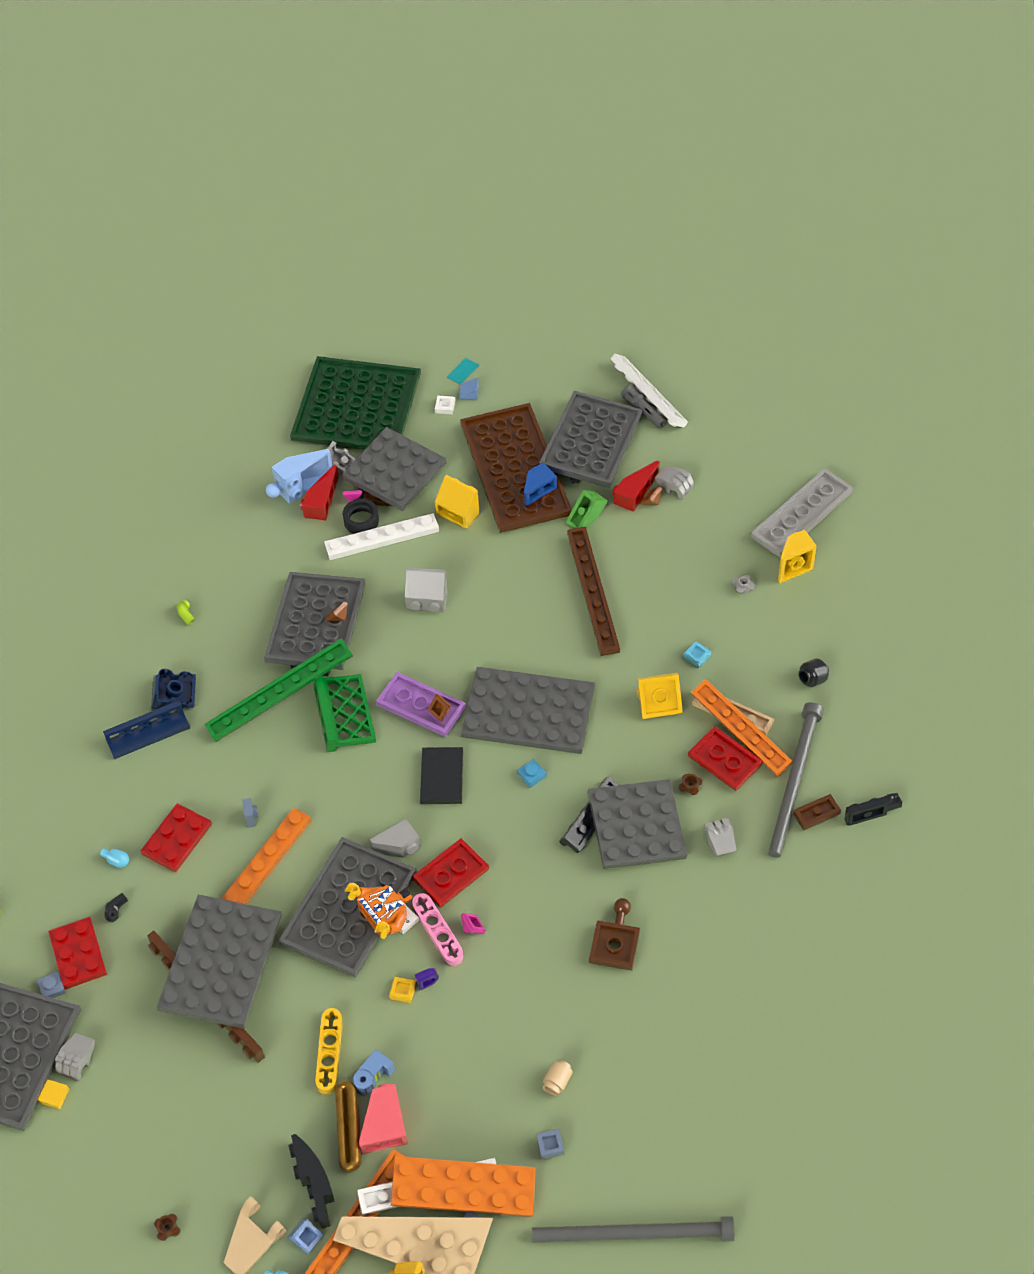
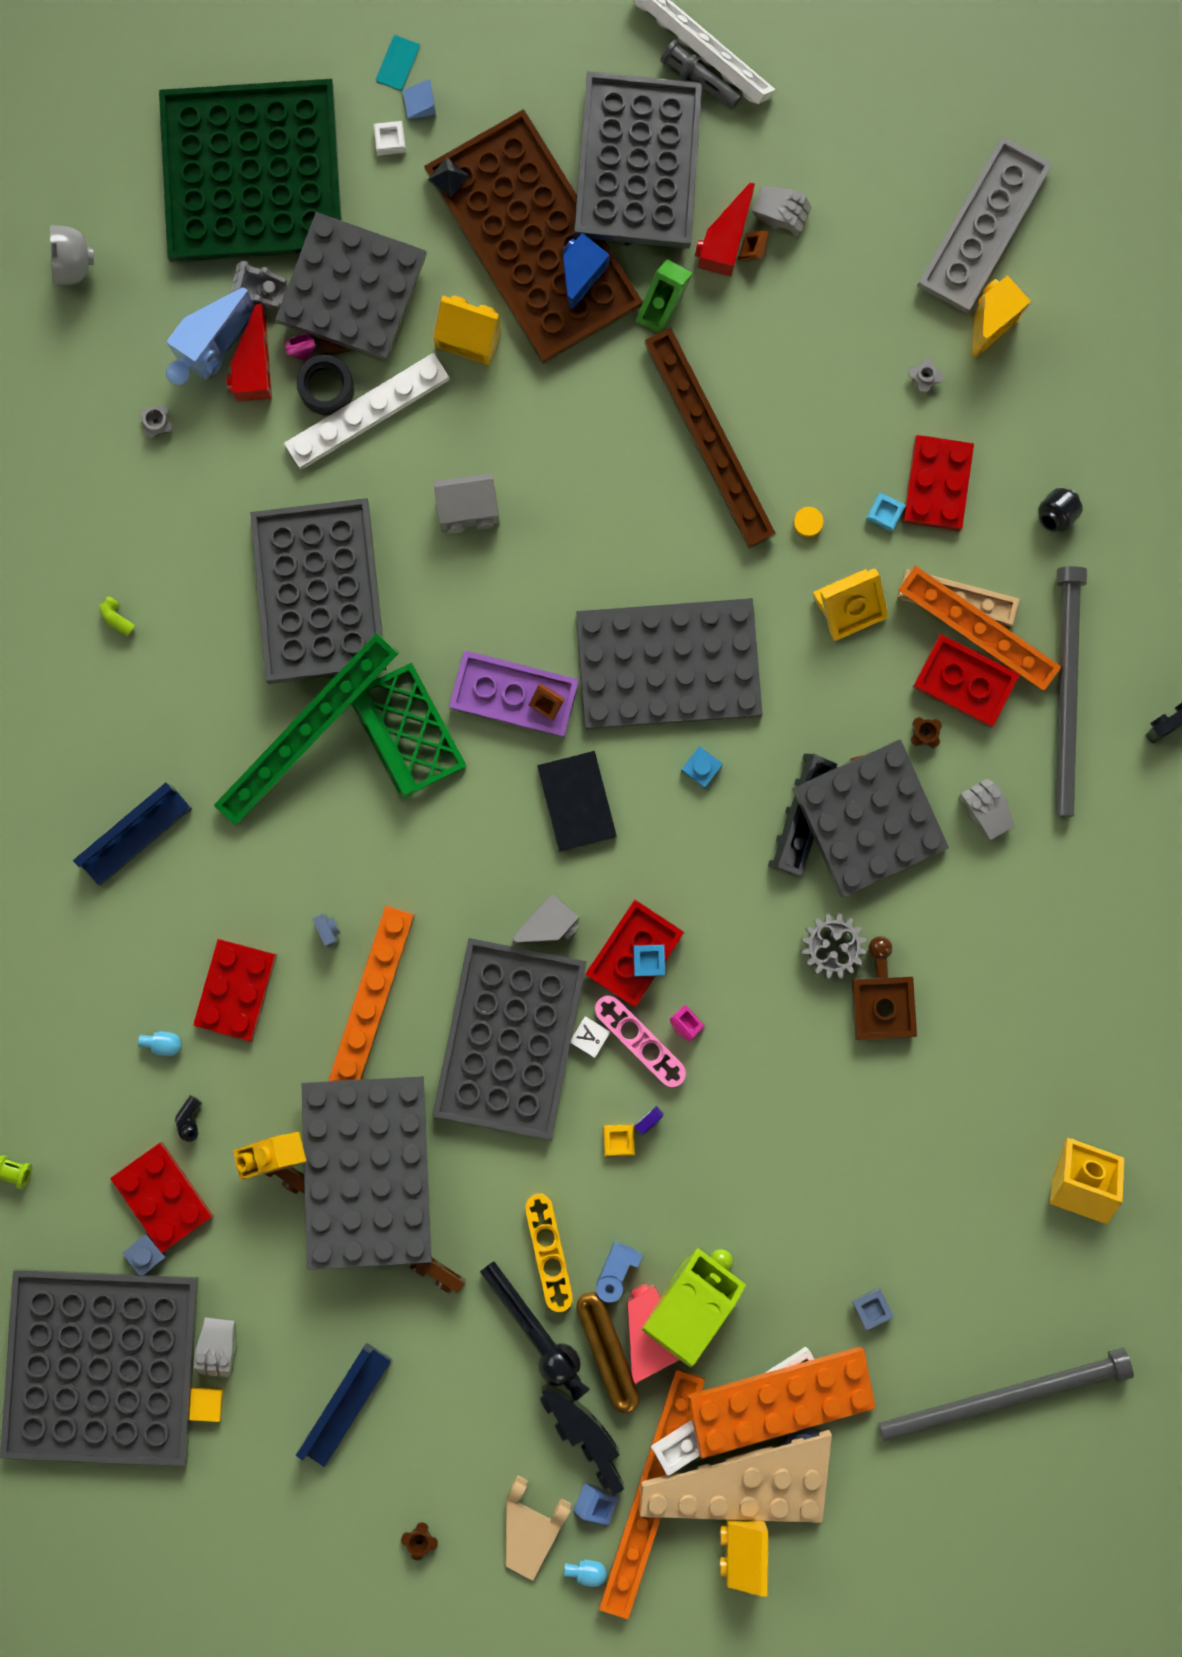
camera: 20 degrees left, 30 degrees up
(147, 1115) = (344, 1405): none -> dark blue fence
(159, 929) = (269, 1155): none -> yellow slope
(173, 687) = (147, 756): dark blue slope -> none
(232, 422) = (69, 255): none -> light grey cylinder
(250, 516) = (152, 413): none -> light grey plate
(310, 1121) = (558, 1362): none -> black piece
(338, 613) = (349, 576): dark orange slope -> none
(381, 907) = (563, 1043): torso -> none
(420, 1099) = (695, 1304): none -> lime slope
(458, 873) = (649, 960): none -> dark azure plate
(472, 426) = (448, 178): none -> black slope
(557, 1077) = (858, 1217): tan brick -> none
(600, 902) = (836, 928): none -> light grey gear
(644, 649) = (808, 522): none -> yellow tile
(732, 1093) = (1088, 1181): none -> yellow slope
(736, 644) = (938, 483): none -> red plate
(817, 812) = (1109, 736): reddish brown plate -> none

